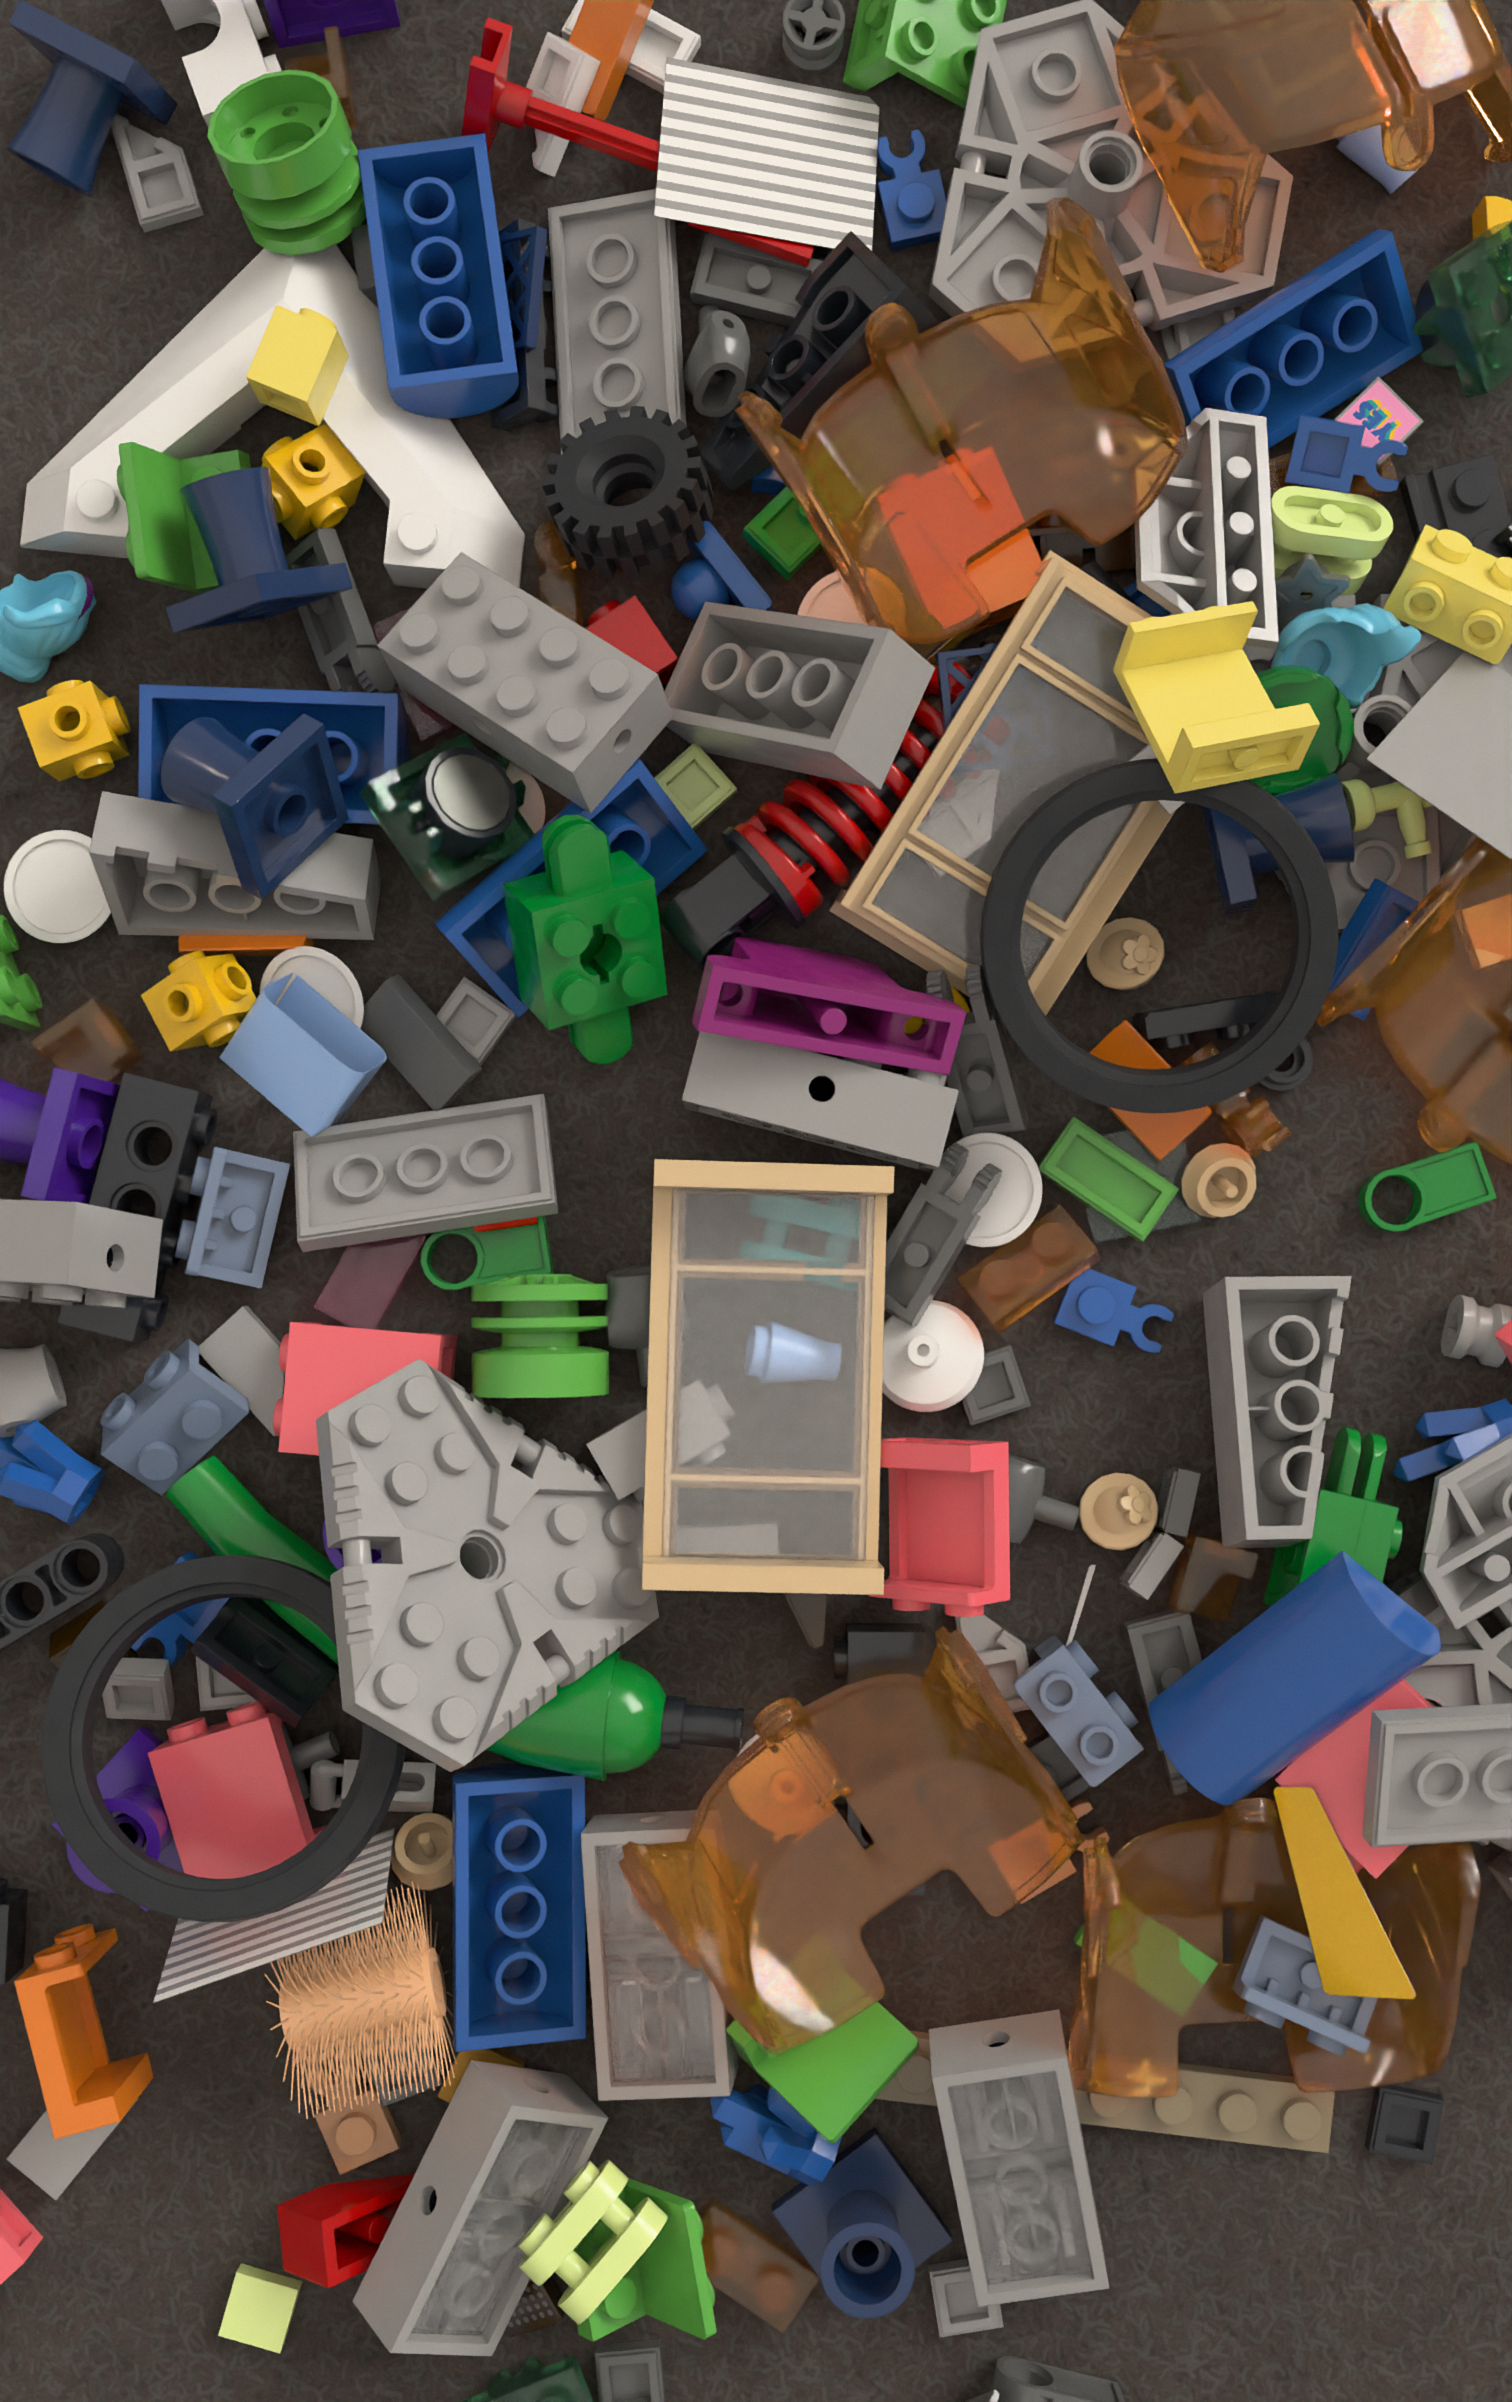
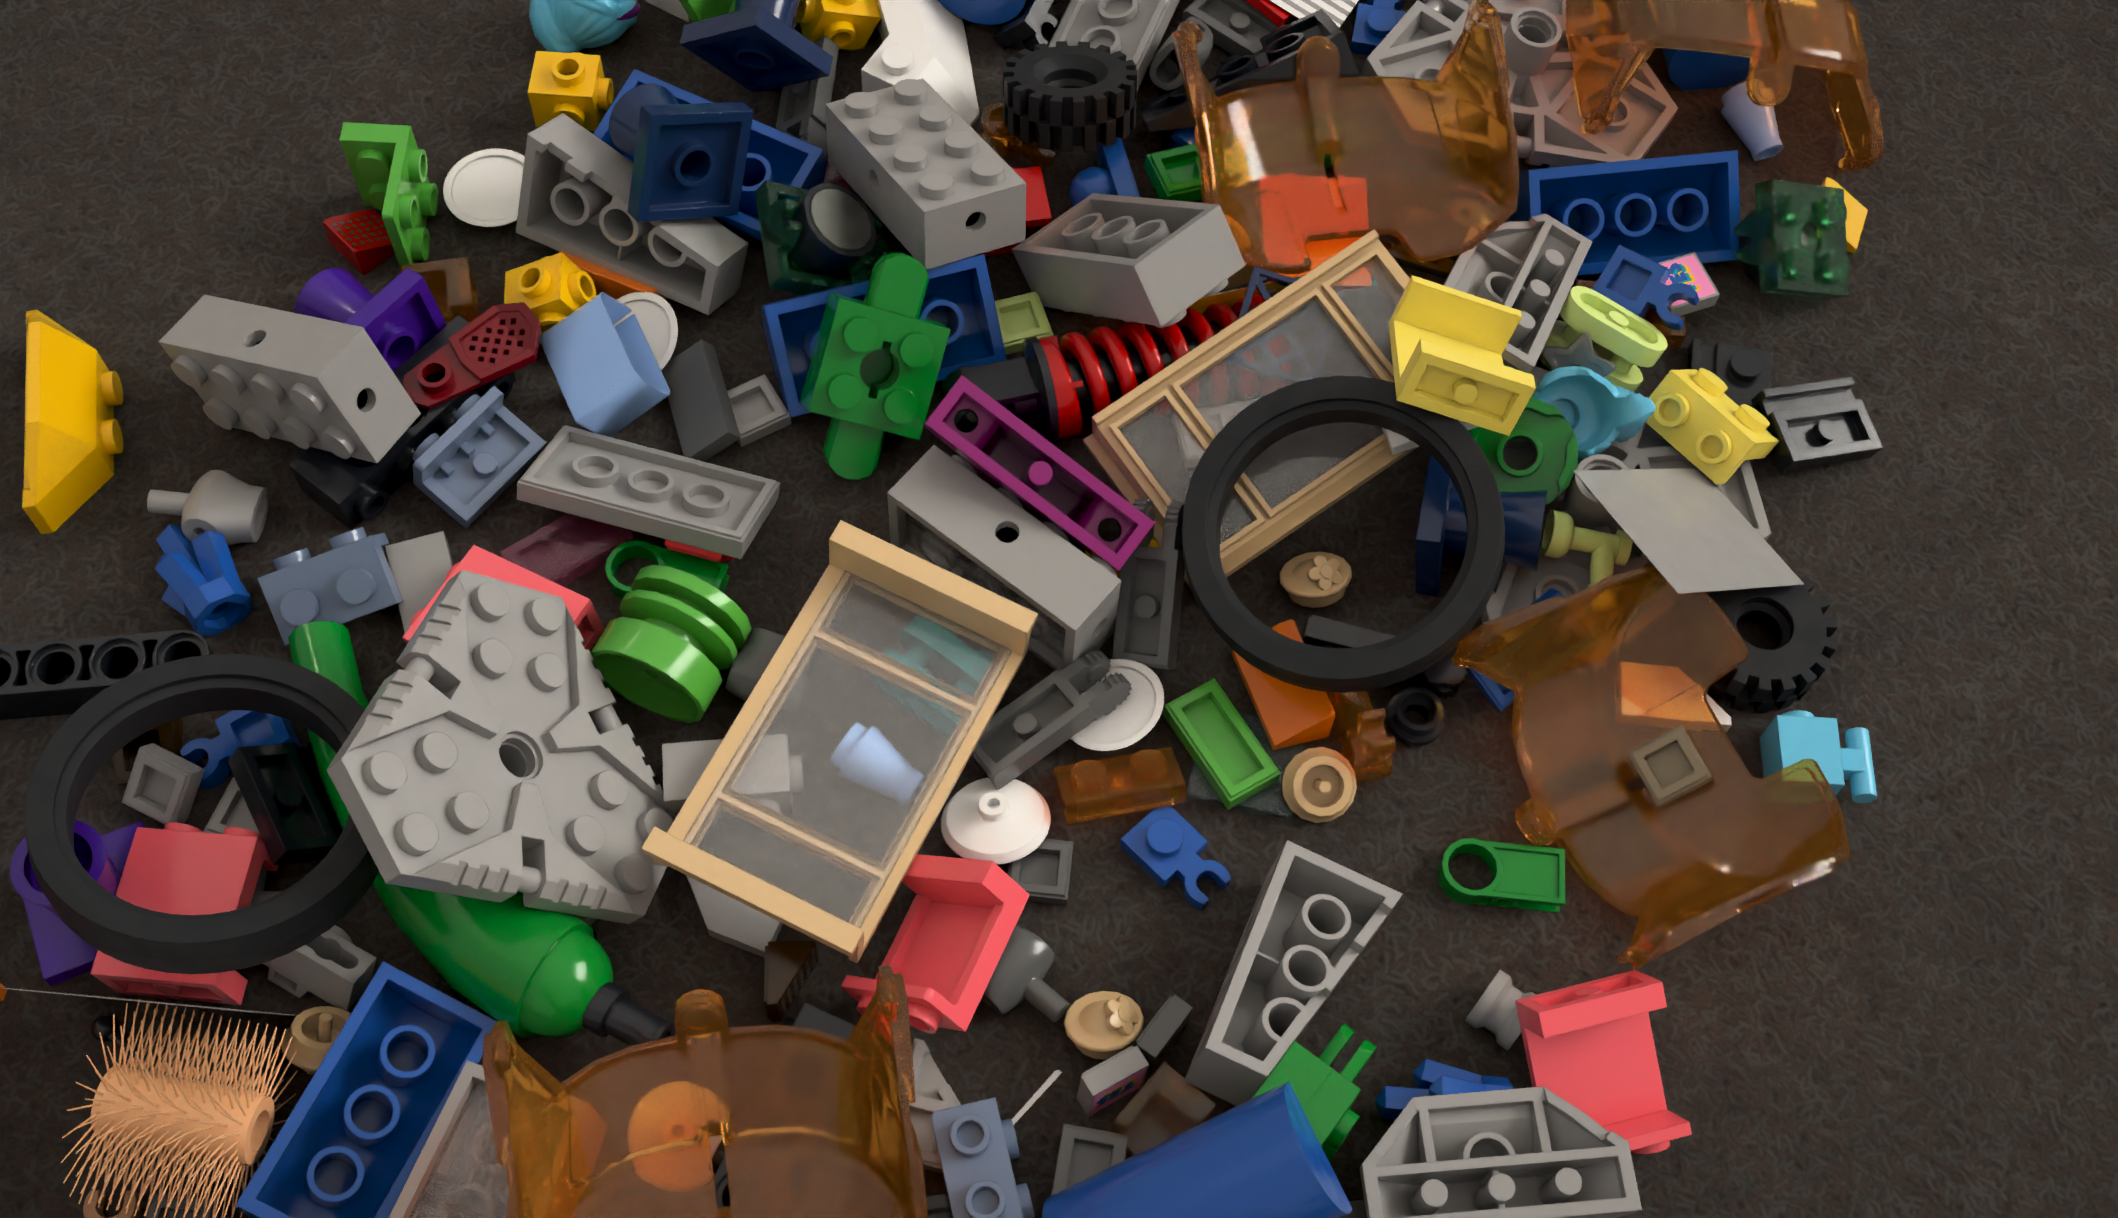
camera: 20 degrees right, 25 degrees down
(163, 1131) = (464, 367): none -> dark red piece

